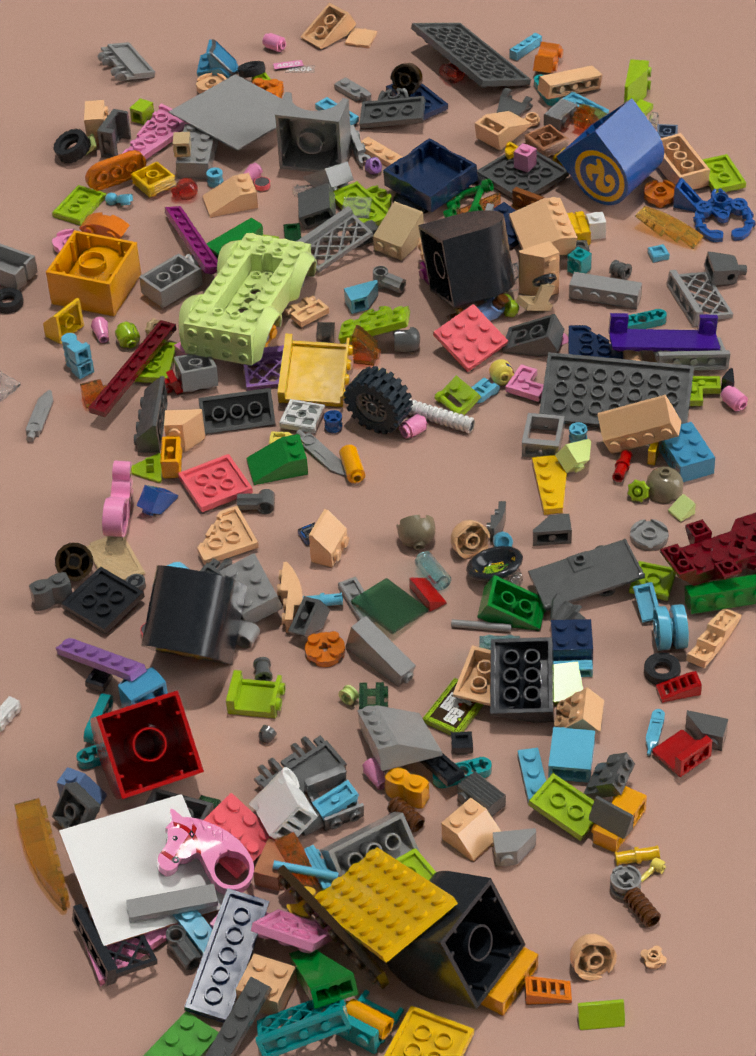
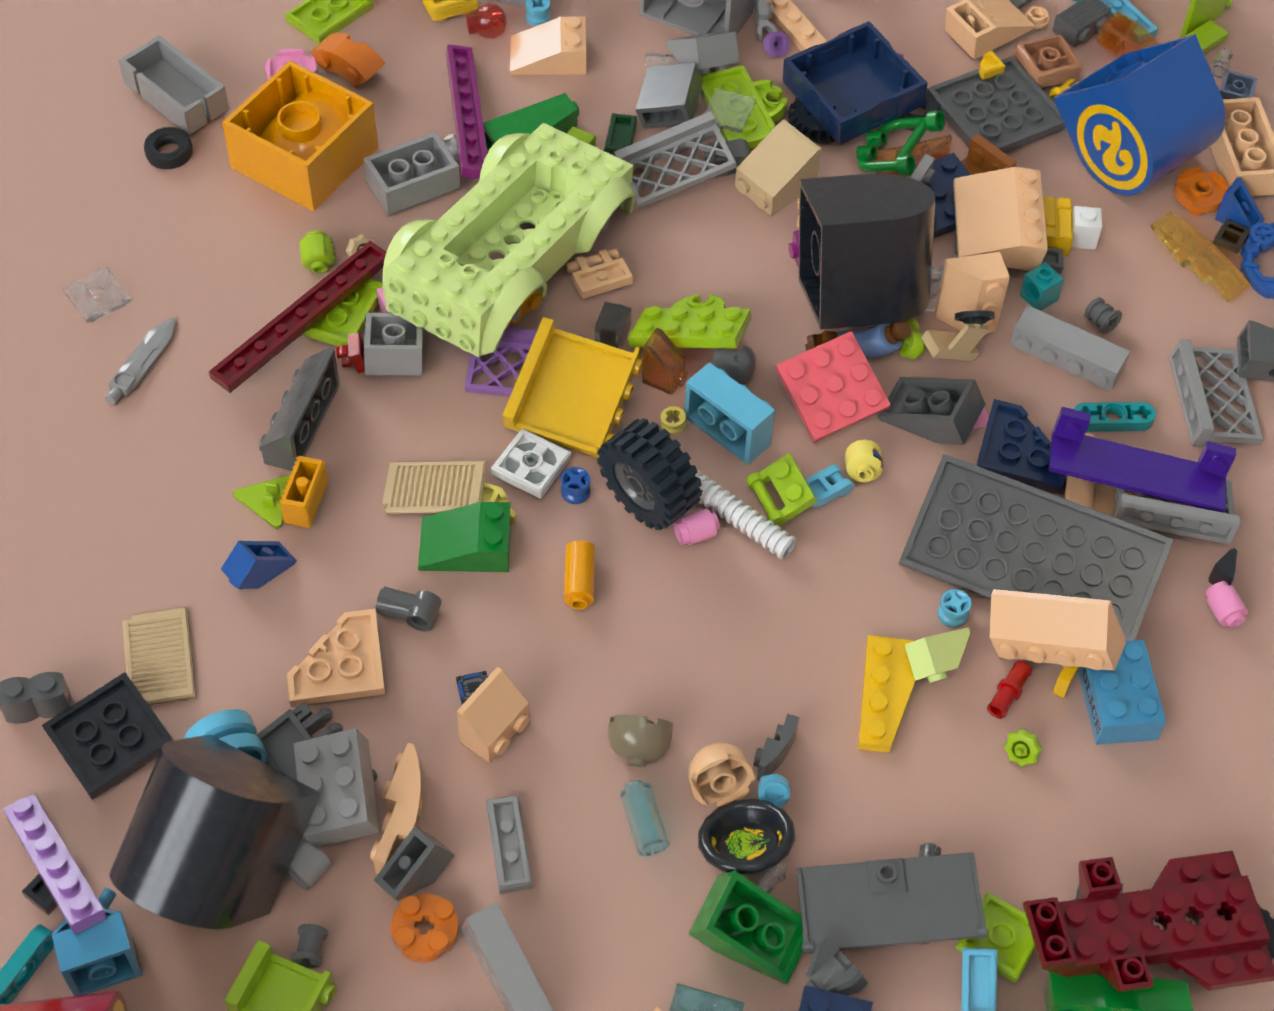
camera: 10 degrees right, 10 degrees up
(65, 321) = (232, 208): yellow slope -> none
(74, 560) = (84, 654): dark brown cylinder -> none
(77, 355) = (227, 272): medium azure legs -> none
(91, 390) = (228, 338): clear orange brick -> none
(100, 328) = (283, 231): bright pink cone -> none
(117, 506) = (183, 575): bright pink animal -> none
(124, 199) = (394, 16): medium azure plate -> none
(137, 580) = (173, 712): tile -> none
(186, 425) = (340, 443): light nougat slope -> none
(215, 482) = (357, 554): coral plate -> none
(237, 410) = (432, 429): dark grey slope -> none
(246, 439) = (432, 486): none -> tan window
(254, 170) = (595, 14): bright pink cone -> none
(262, 183) = (604, 36): tile -> none
(321, 453) = (539, 537): light grey piece -> none
(329, 599) = (452, 829): medium azure pin -> none
(361, 296) = (688, 267): medium azure slope -> none
(388, 280) = (732, 245): light grey piece -> none
(389, 605) = (553, 870): clear green piece -> none
(413, 363) = (729, 413): none -> medium azure brick
(426, 593) = (623, 859): red slope -> none
(481, 625) = (692, 949): light grey bar -> none
(523, 384) = (890, 491): bright pink plate -> none
(525, 157) = (1006, 85): bright pink brick -> none
(530, 446) = (887, 621): light grey window -> none
(553, 531) = (863, 791): dark grey slope -> none
(649, 534) = (1019, 837): light grey tile -> none
(658, 253) = (1170, 297): medium azure tile -> none
(664, 484) = (1069, 746): dark tan cylinder -> none
(682, 508) = (1087, 800): yellowish green slope -> none
(685, 212) = (1231, 236): none -> dark brown slope
(704, 385) = (1183, 566): lime plate -> none

